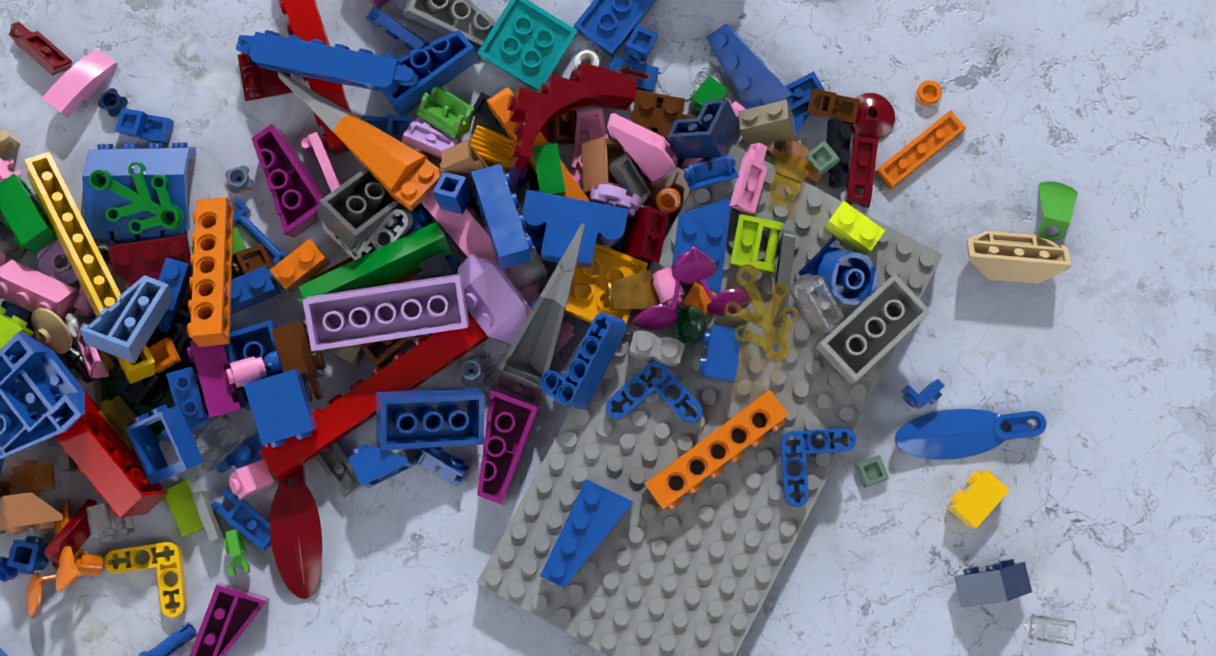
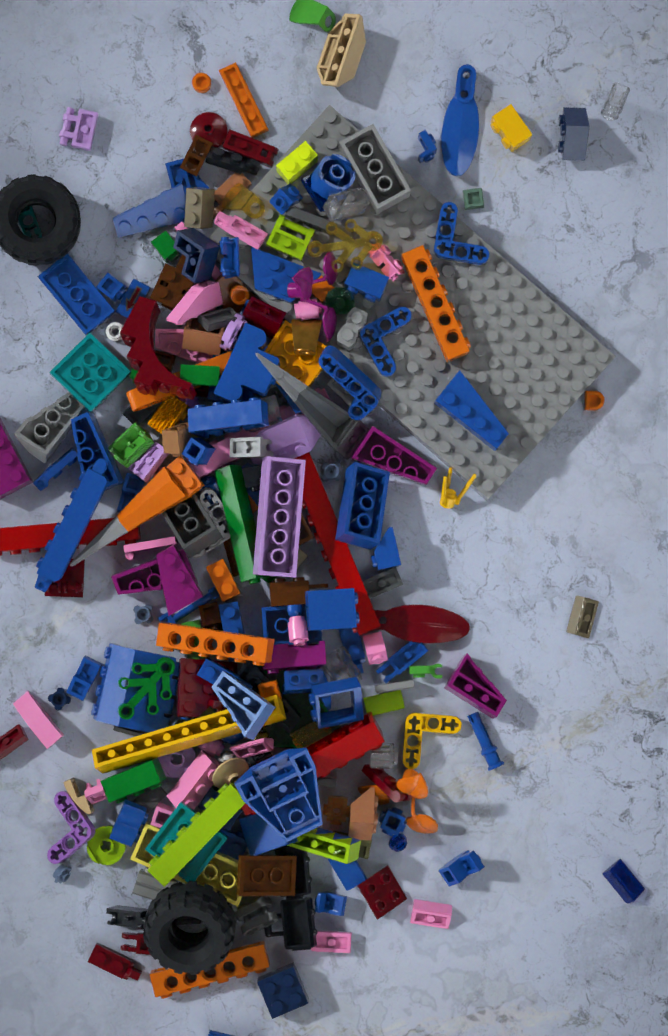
camera: 75 degrees left, 5 degrees up
(281, 204) = (177, 581): none -> magenta wedge
(451, 466) = (401, 501): blue hinge -> none
(469, 255) = (249, 447): none -> light grey hinge
(471, 529) = (449, 496): none -> yellow plant
(751, 384) = (392, 267): none -> bright pink hinge
(805, 225) = (285, 198): none -> blue bracket
(822, 158) = (235, 173): sand green tile -> none

